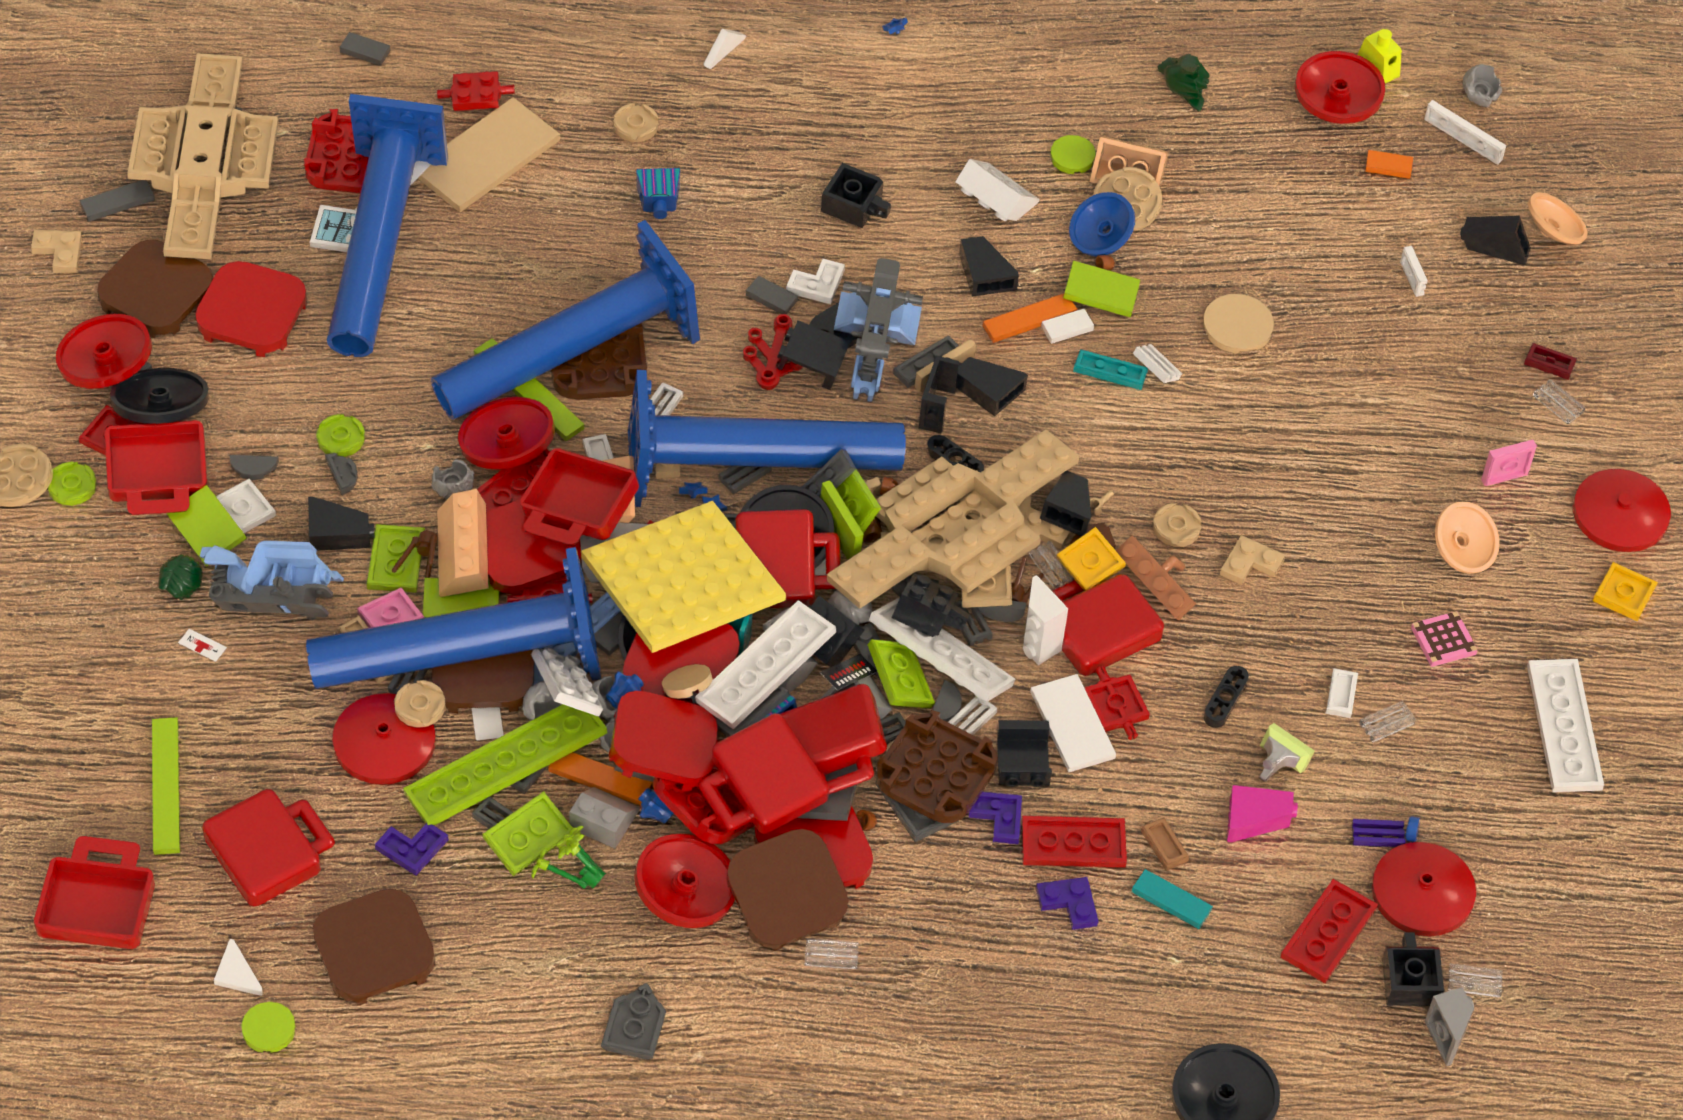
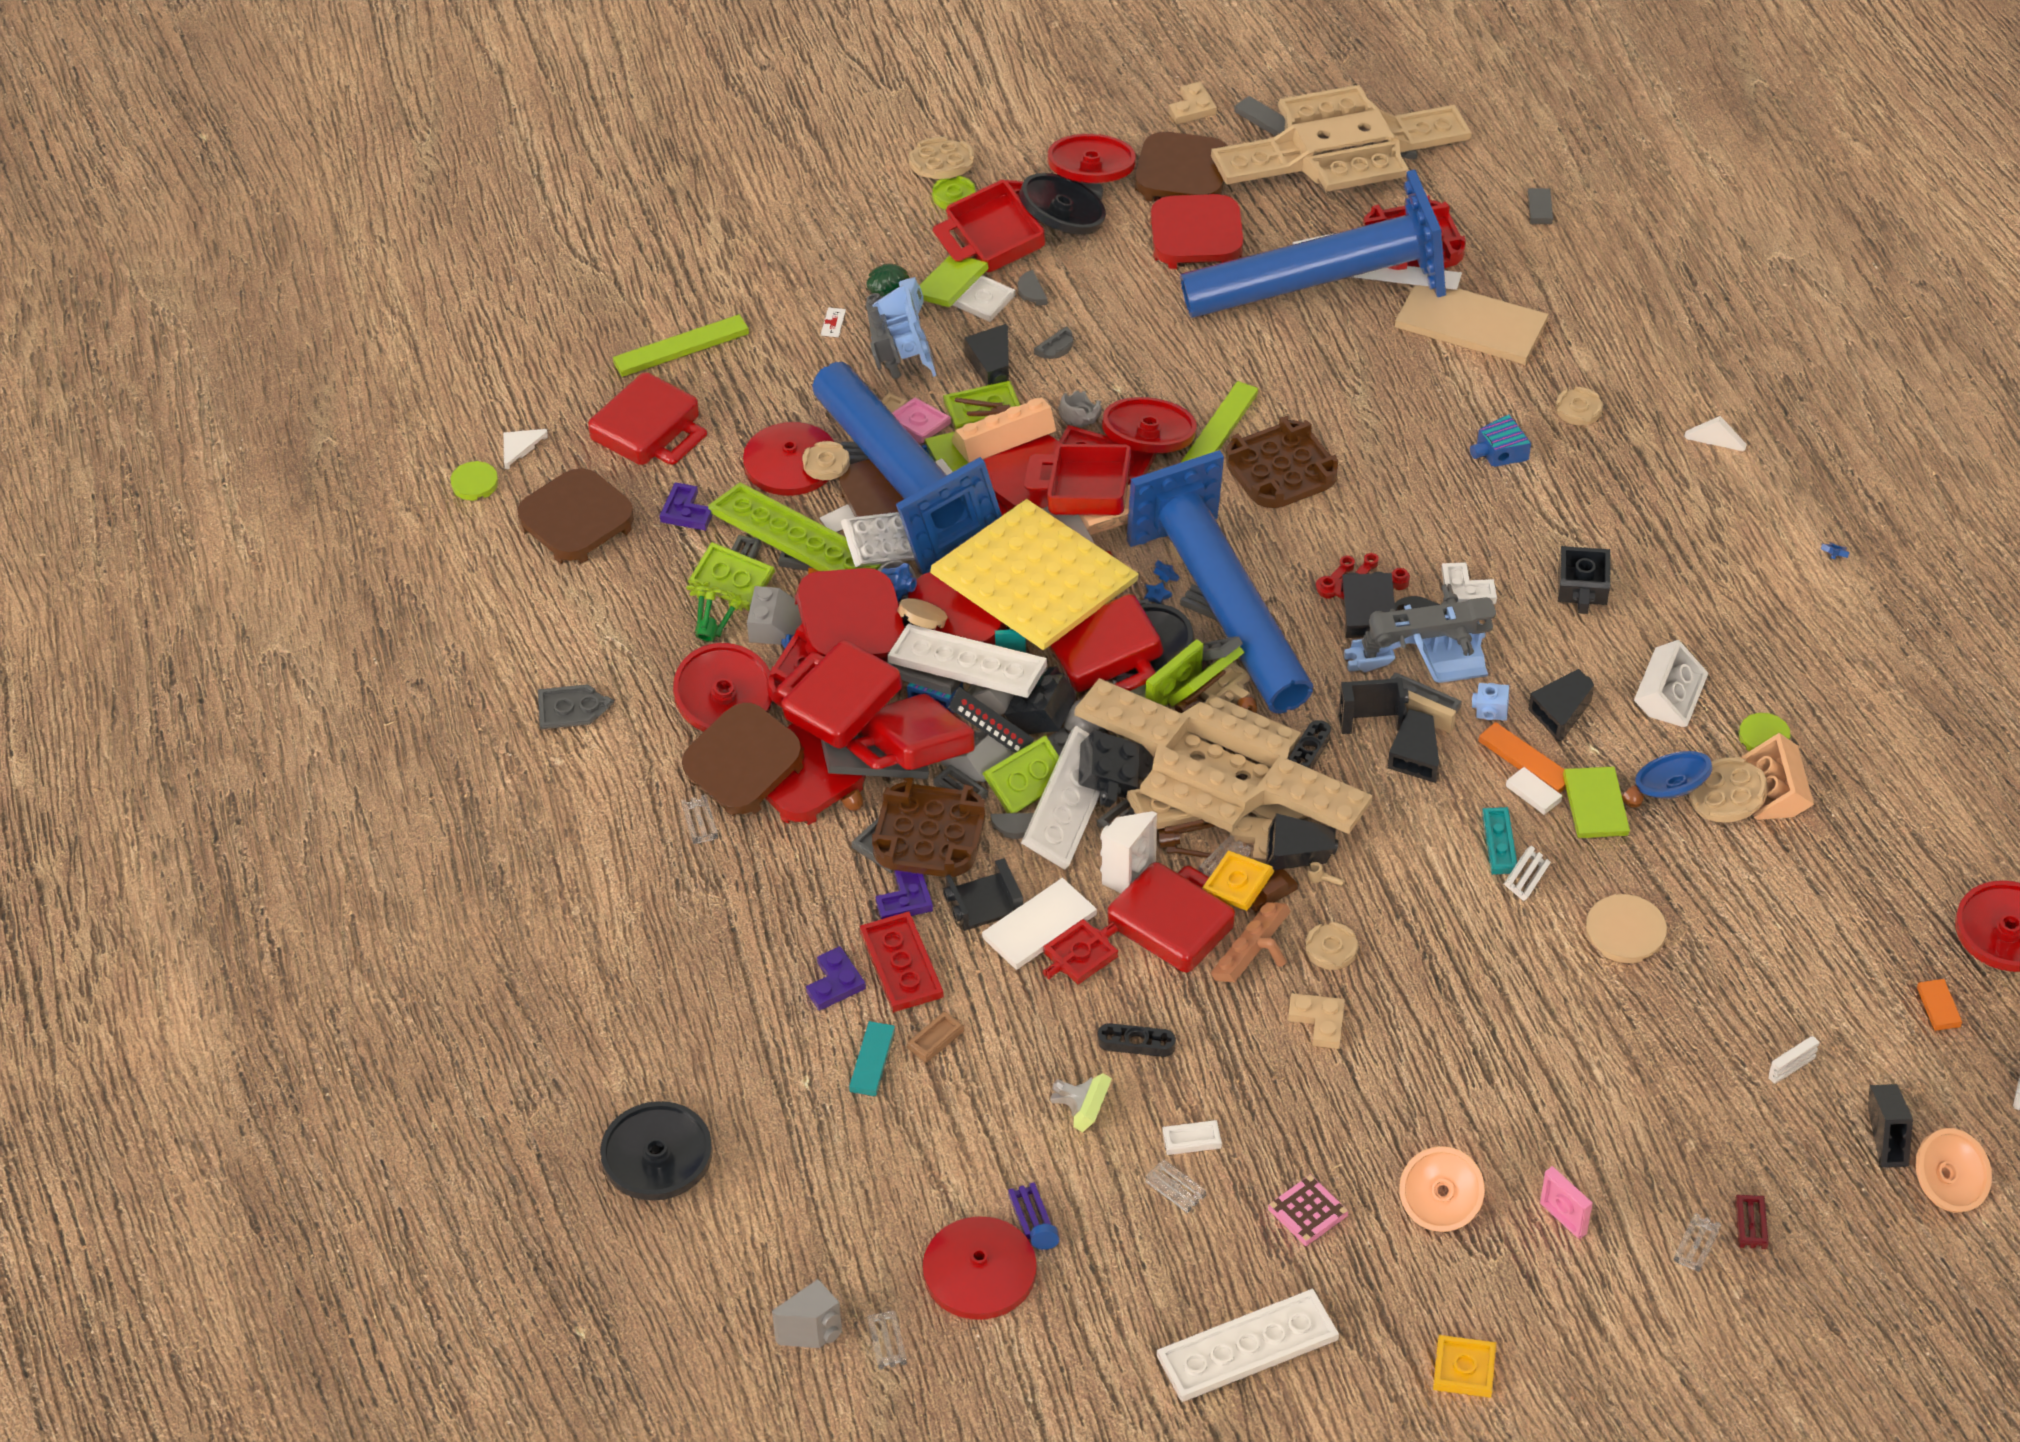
camera: 75 degrees right, 5 degrees down
(96, 899) = (548, 338): red piece -> none
(340, 435) = (1095, 331): lime tile -> none
(475, 91) = (1538, 288): red plate -> none
(654, 289) = (1362, 461): blue piece -> none
(672, 404) = (1250, 524): white tile -> none
(771, 295) = (1430, 560): dark grey tile -> none
(965, 312) = (1491, 701): none -> light blue brick
(992, 710) = (1008, 849): white tile -> none
(1186, 78) = (1925, 794): dark green piece -> none
(1258, 811) = (1001, 1097): dark pink slope -> none
(1329, 931) = (888, 1195): red plate -> none
(1412, 973) = (862, 1272): black hinge -> none
(1621, 510) = (1577, 1338): red dish -> none

